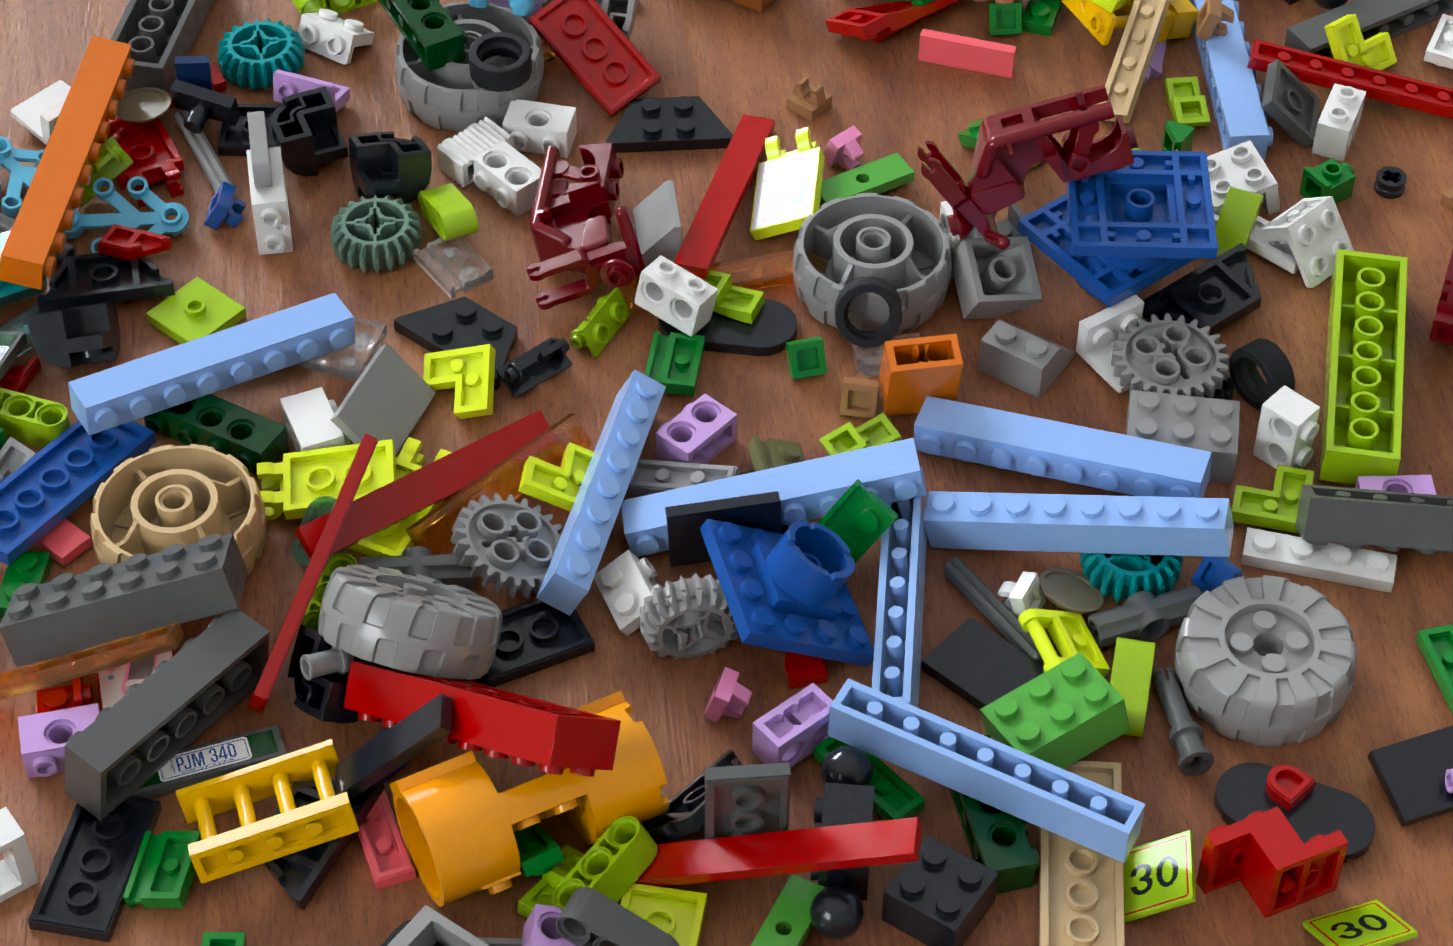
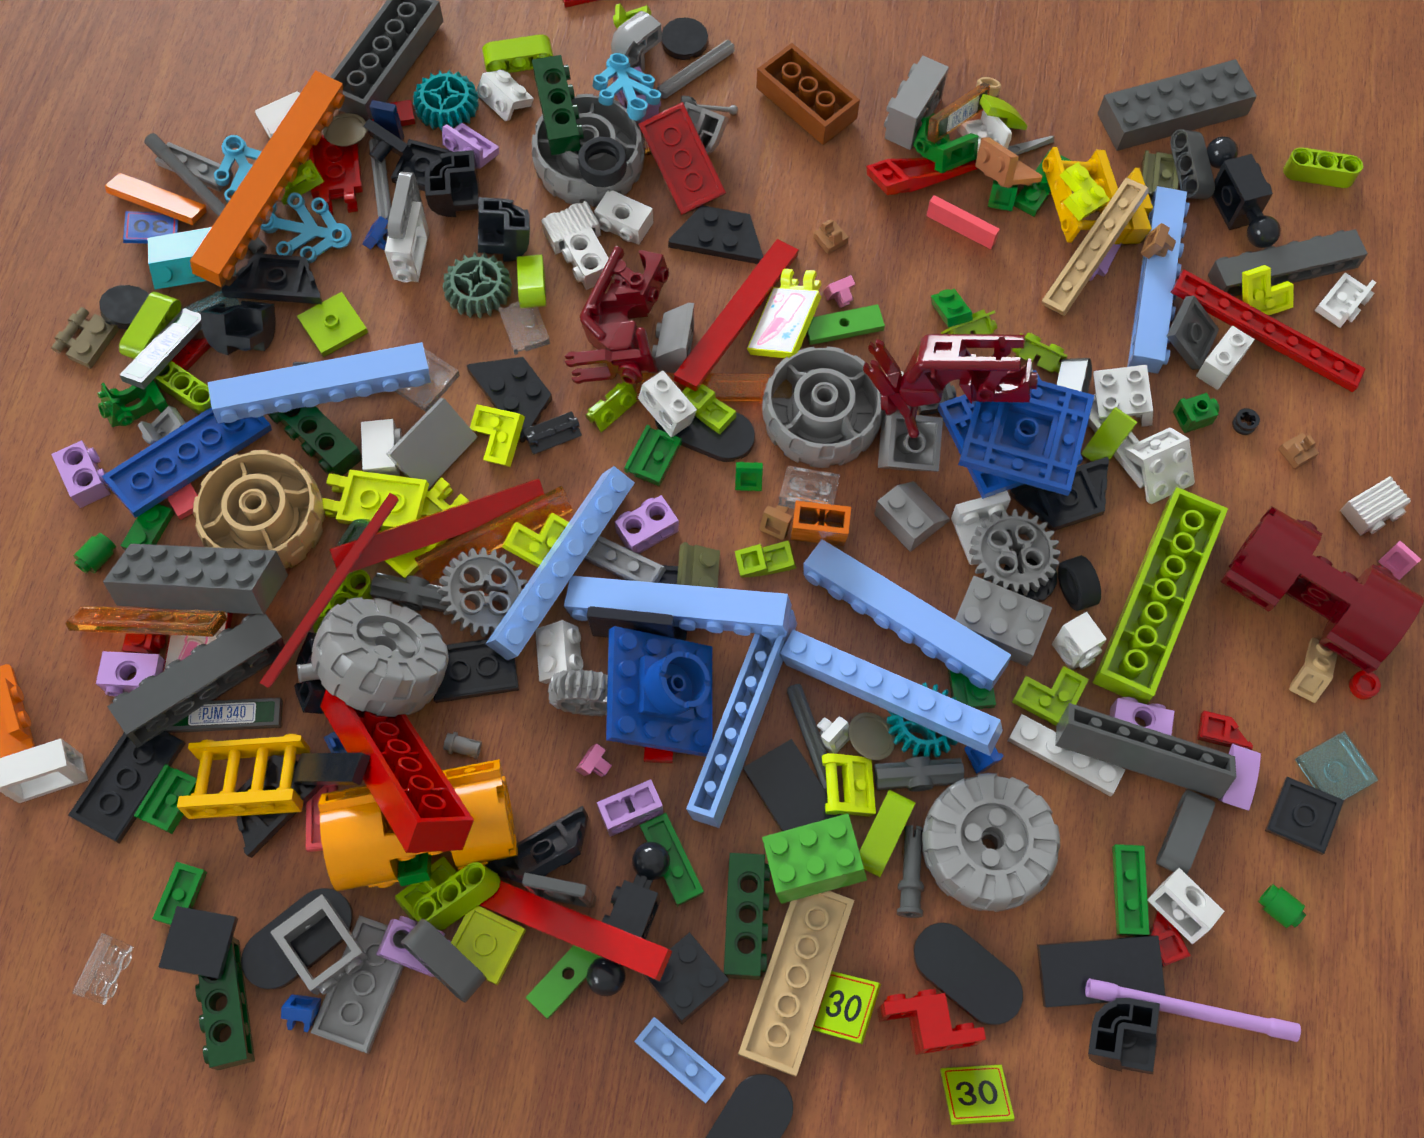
camera: 15 degrees right, 20 degrees up
(132, 243) = (302, 253): red tile -> none
(859, 519) = (725, 648): green plate -> none
(868, 338) = (808, 442): black tyre -> none
(986, 770) = (745, 897): light blue brick -> none
(1177, 136) = (1094, 344): green slope -> none
(1186, 102) = (1115, 307): lime slope -> none
(1288, 785) = (969, 954): red tile -> none

